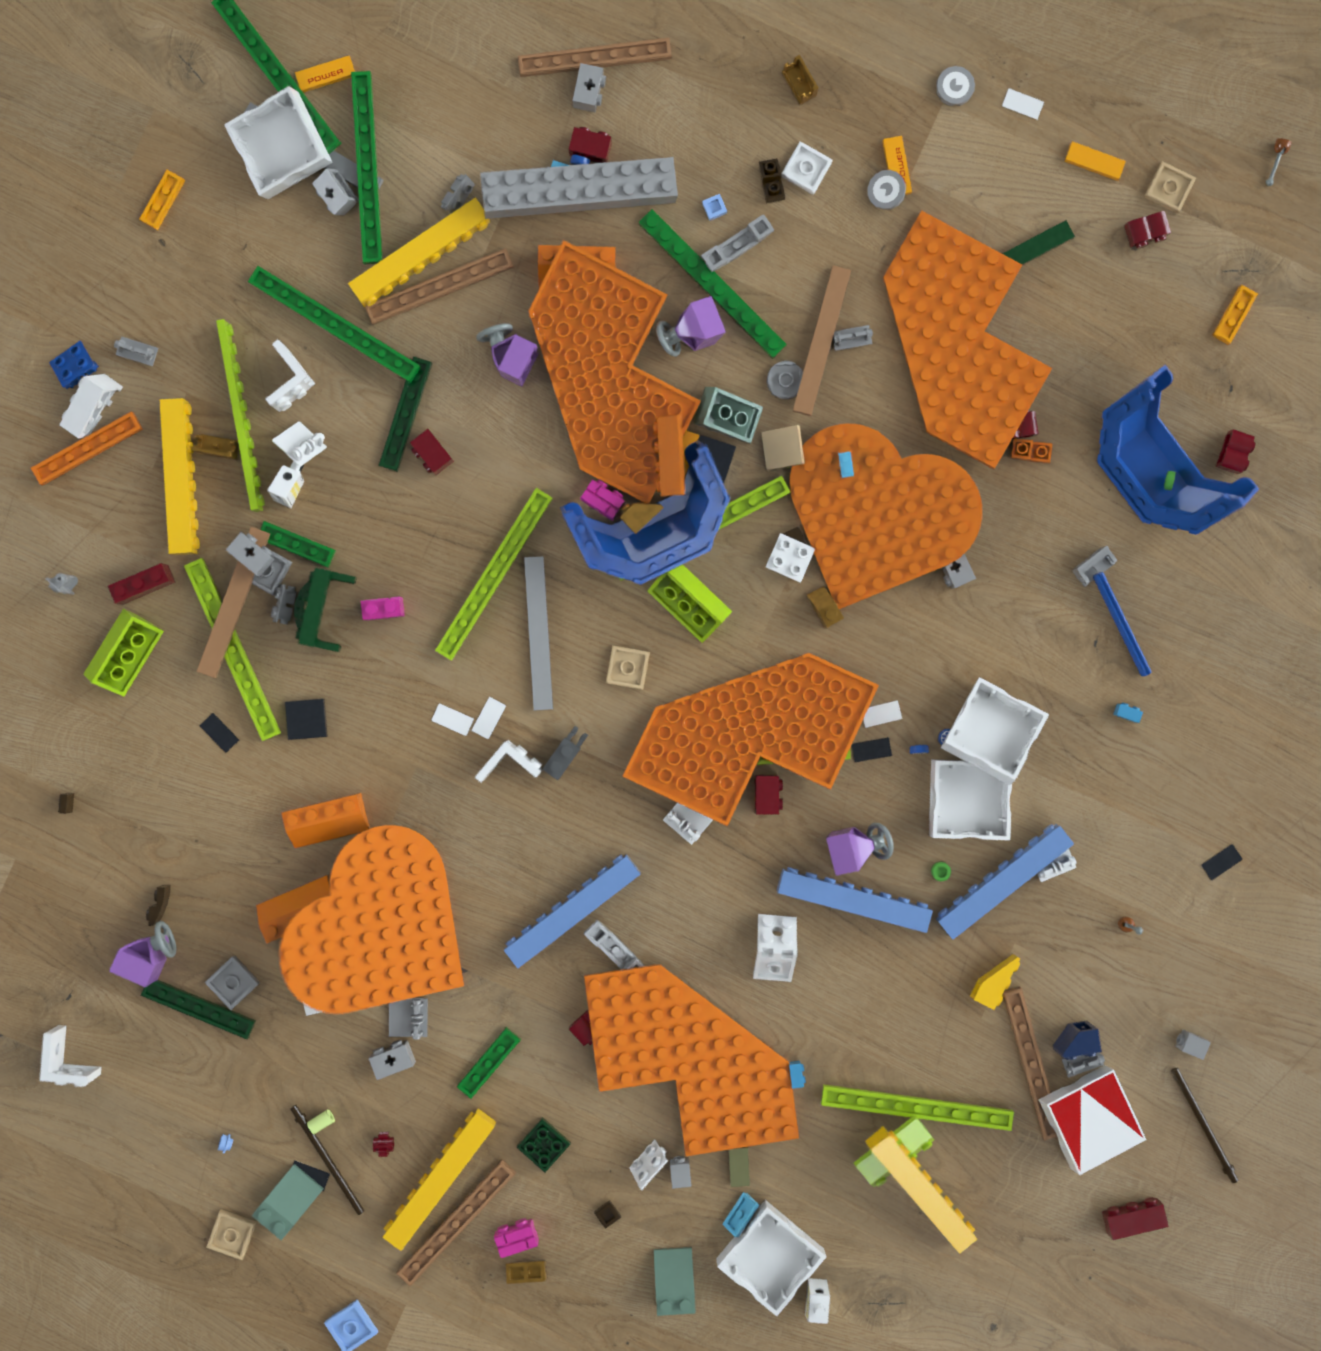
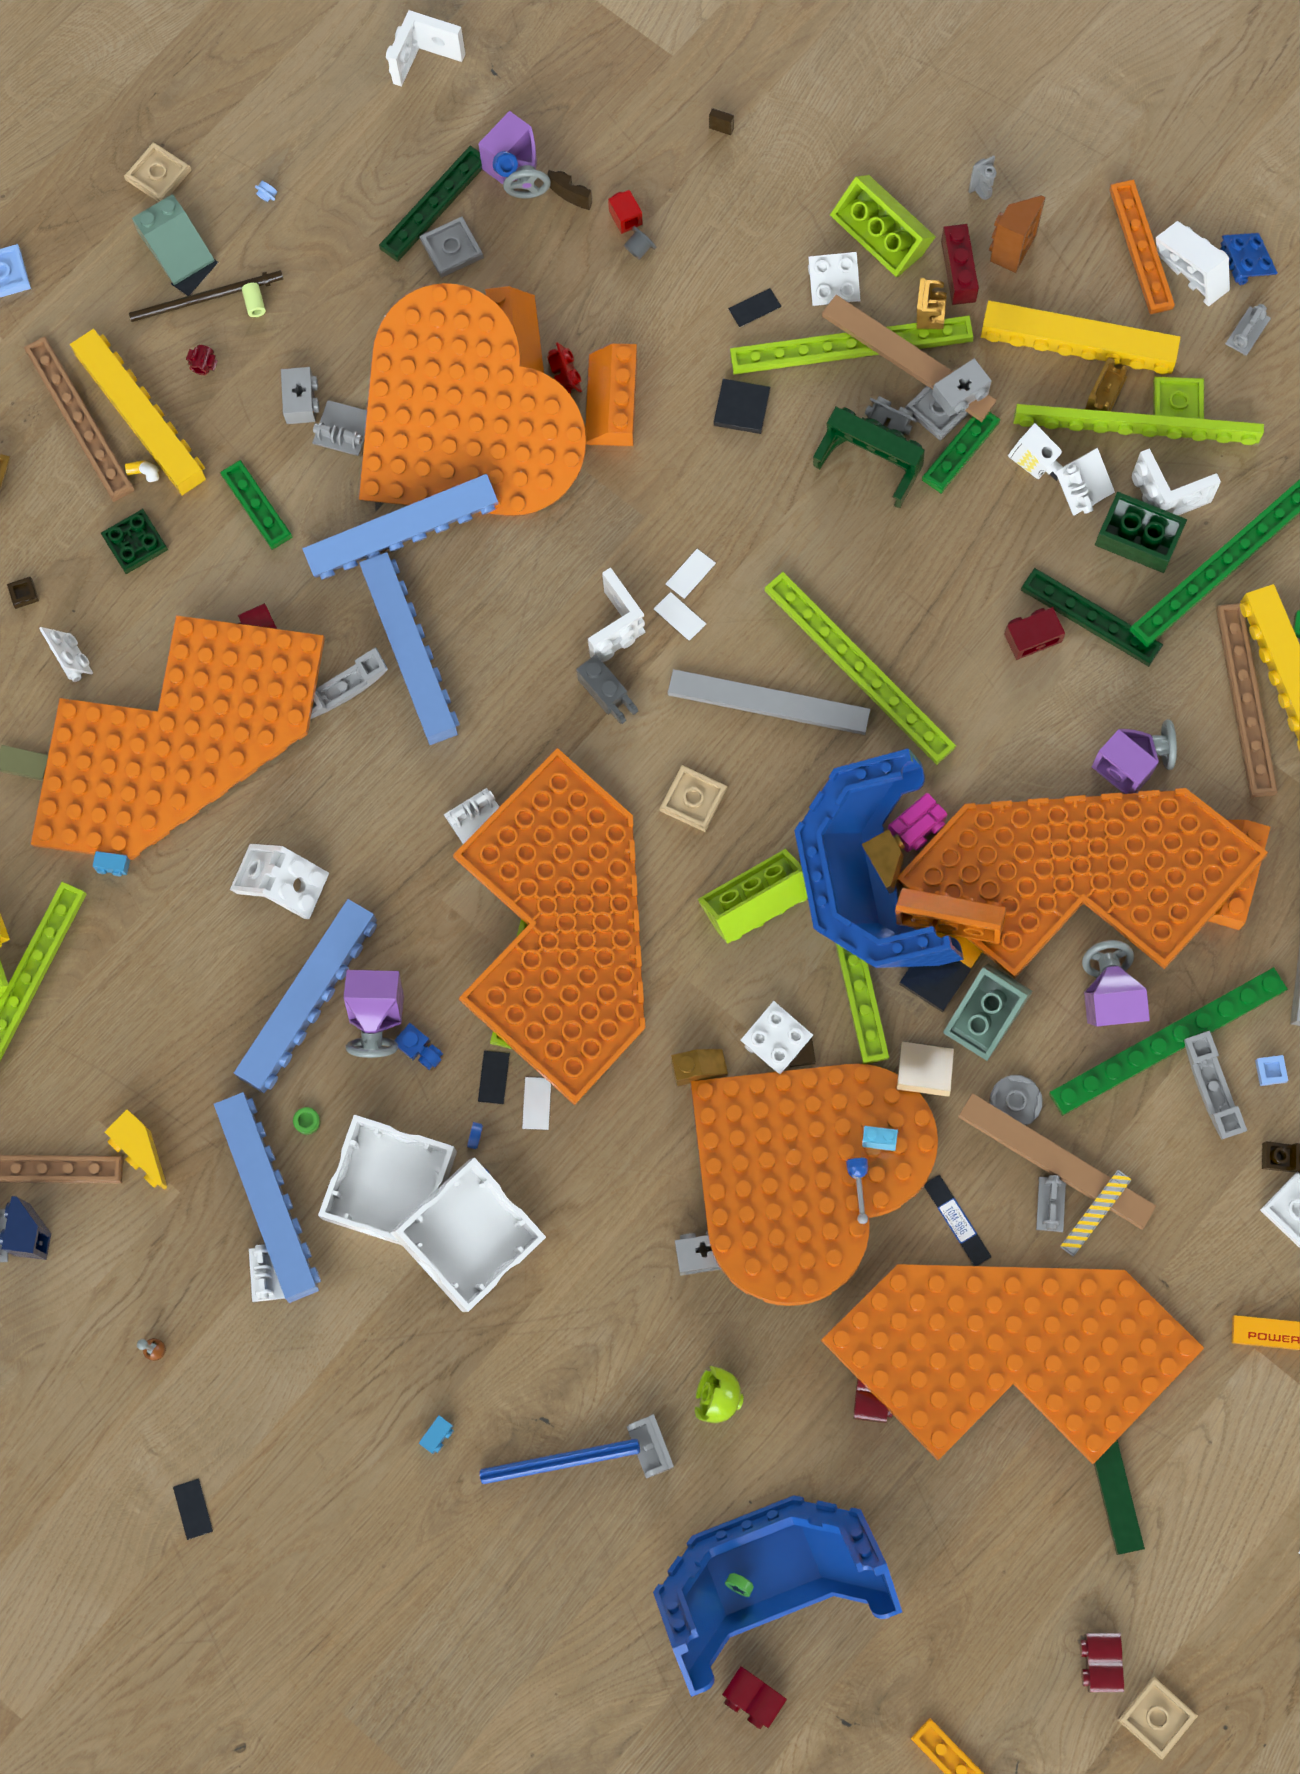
camera: 105 degrees right, 15 degrees down
(107, 546) = (1016, 232): none -> dark orange slope
(157, 960) = (505, 163): none -> blue tile
(165, 856) = (625, 211): none -> red brick
(180, 677) = (834, 276): none -> white hinge
(183, 596) = (931, 305): none -> pearl gold hinge
(192, 837) = (639, 244): none -> dark grey piece
(209, 390) = (1178, 397): none -> lime tile
(306, 866) = (562, 361): none -> red hinge
(330, 392) = (1140, 532): none -> dark green slope
(382, 608) = (852, 524): dark pink brick -> none
(480, 946) = (401, 526): none -> medium blue brick
(483, 1156) = (143, 467): none -> white arm
(516, 1237) = (35, 479): dark pink brick -> none
(680, 1172) = (42, 689): light grey brick -> none
(767, 794) = (477, 924): dark red brick -> none
(850, 305) = (1095, 1213): none -> sticker
(864, 813) = (414, 1043): none -> blue plate
(873, 473) = (857, 1169): none -> hinge
(880, 399) = (957, 1220): none -> sticker
(886, 189) = (1243, 1306): light grey tile -> none
(1032, 451) = (832, 1406): orange slope -> none
(1050, 528) = (719, 1396): none -> lime cylinder
(1094, 161) = (1219, 1617): light orange tile -> none

